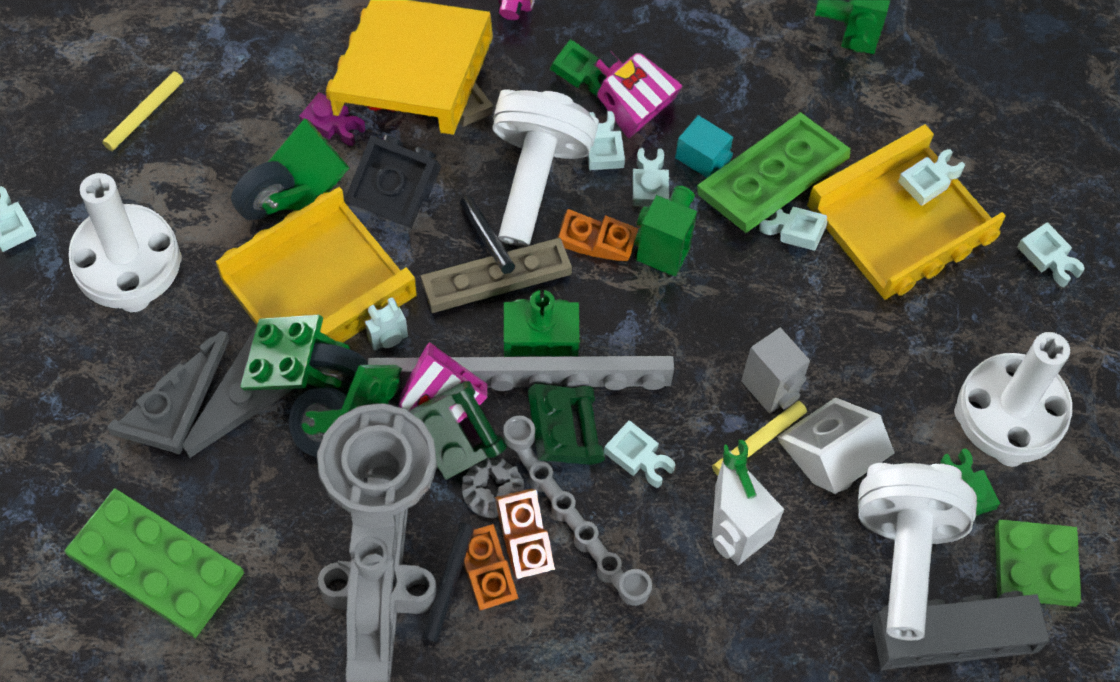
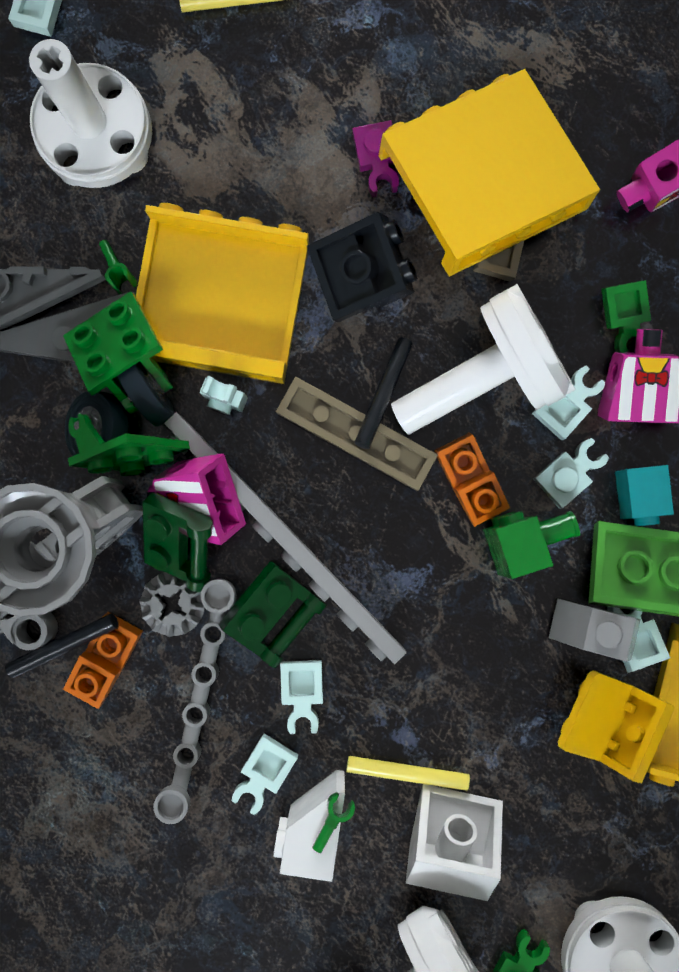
camera: 50 degrees right, 25 degrees up
(233, 325) = (117, 272): none -> green hand
(292, 177) = (290, 185): green plate -> none
(524, 533) = (154, 665): slope -> none
(541, 327) = (338, 517): green brick -> none
(670, 522) = (266, 769): none -> light aqua plate
(765, 238) = (594, 630): none -> light grey slope
(775, 371) = (470, 751): light grey brick -> none
(844, 280) = (615, 725): none -> yellow bracket

